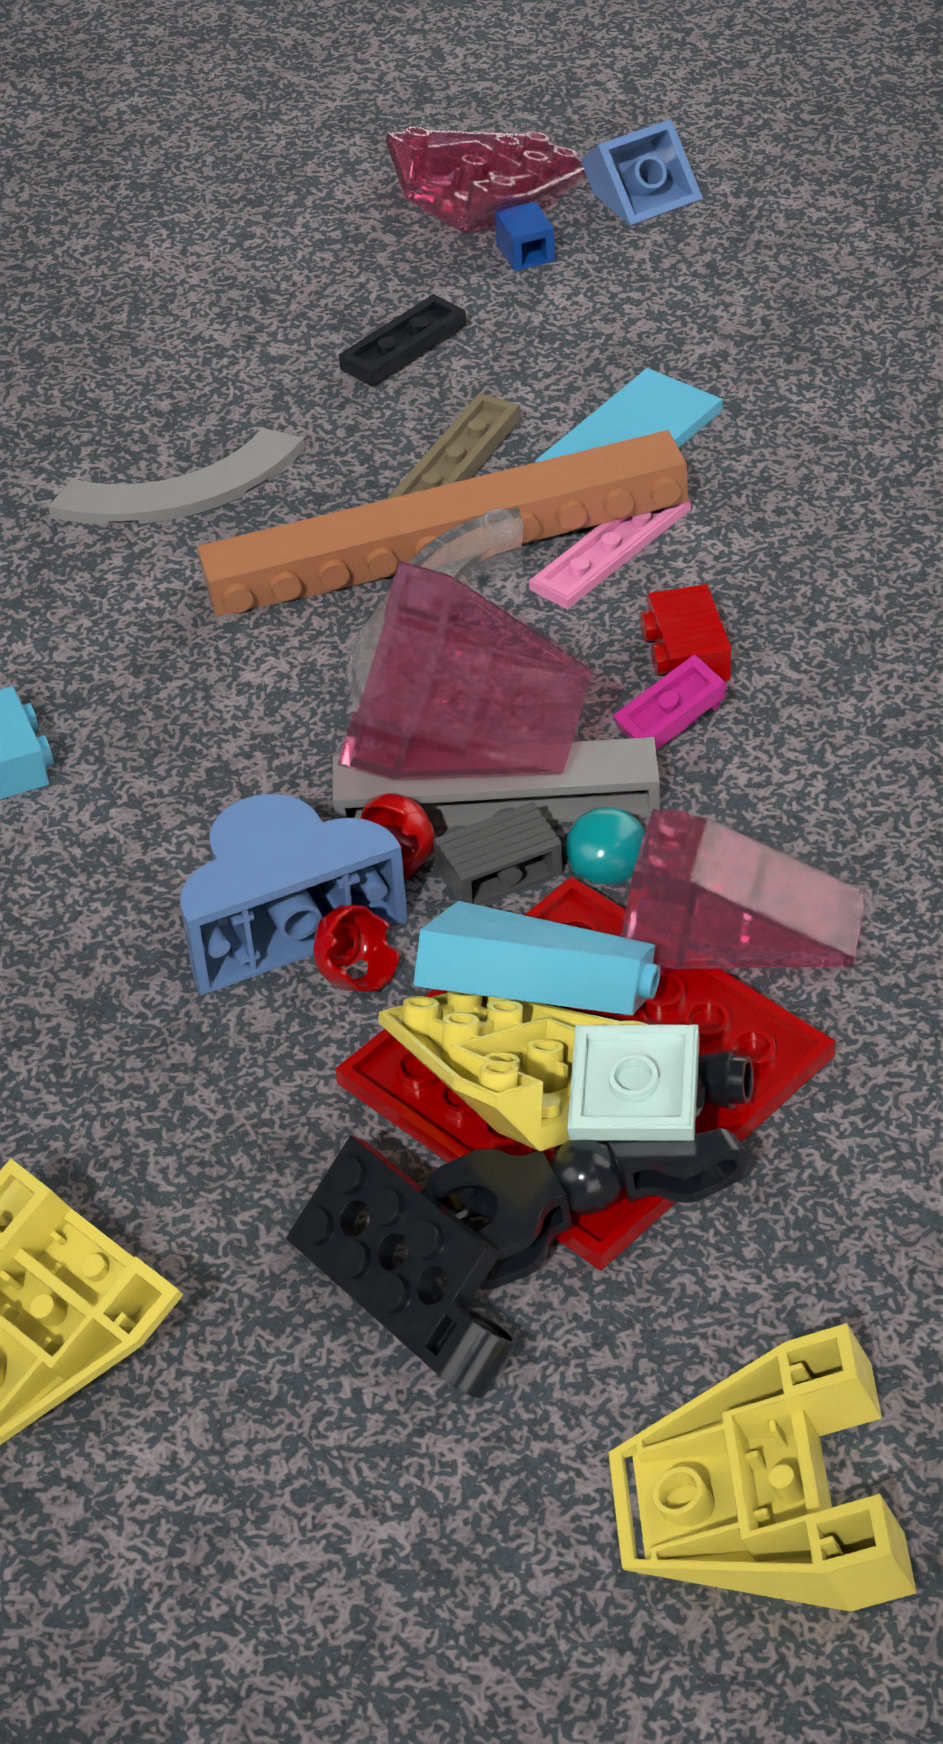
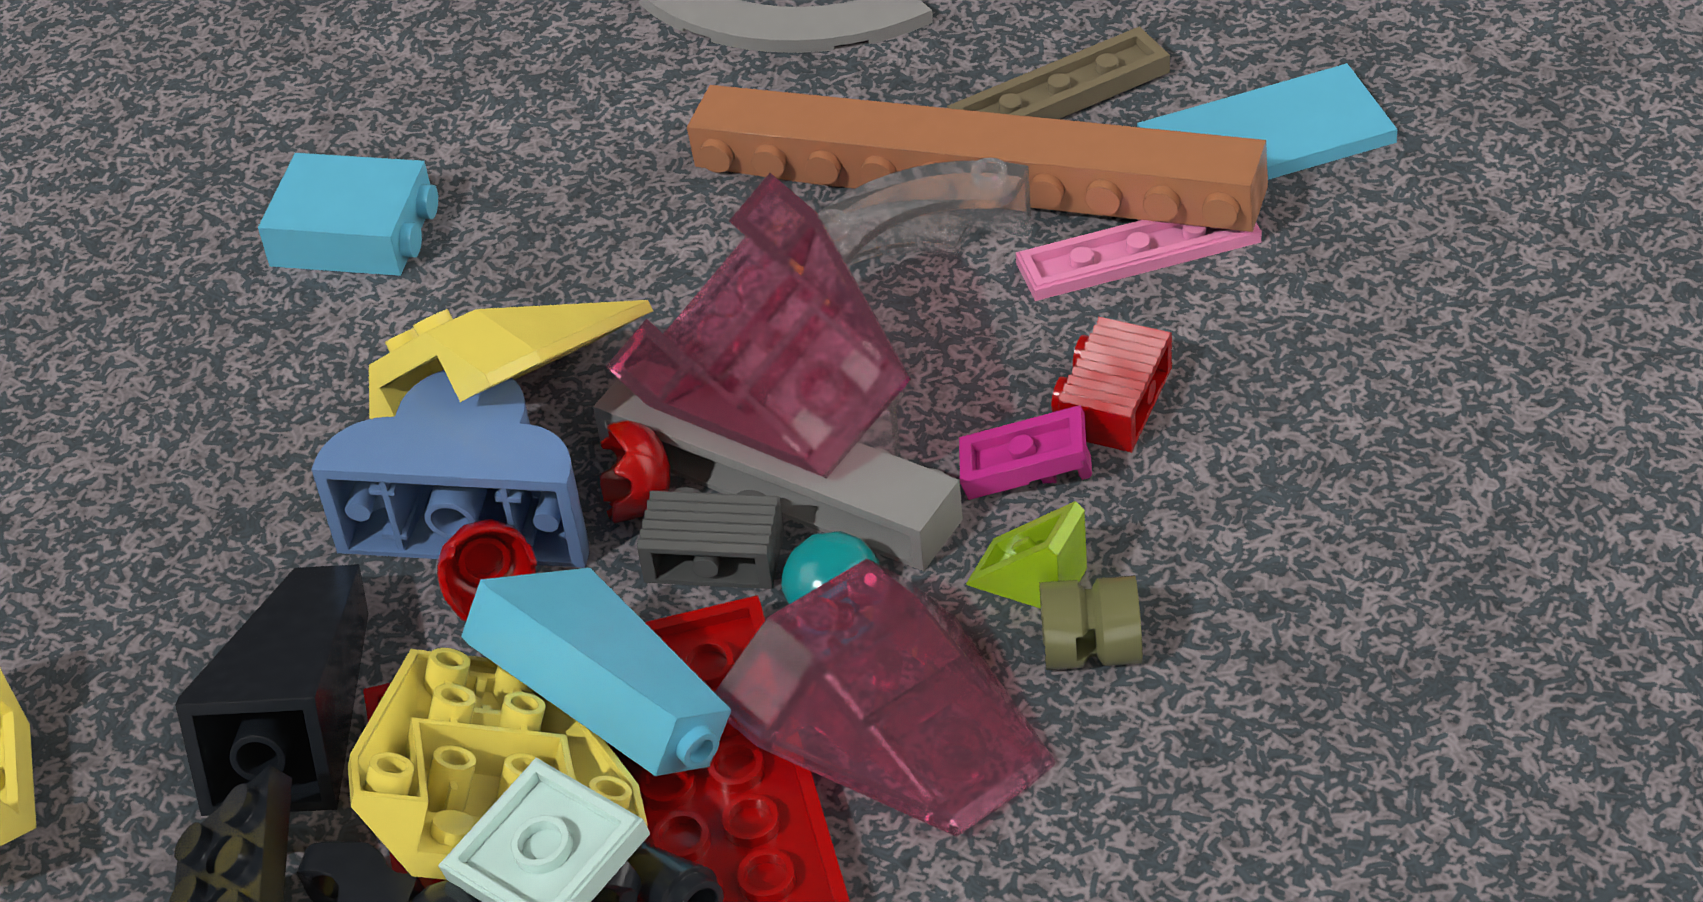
camera: 35 degrees right, 0 degrees up
(266, 773) = (490, 346): none -> light yellow wedge
(290, 1092) = (281, 692): none -> black slope
(742, 770) = (1034, 553): none -> lime slope
(809, 790) = (1091, 622): none -> olive wheel

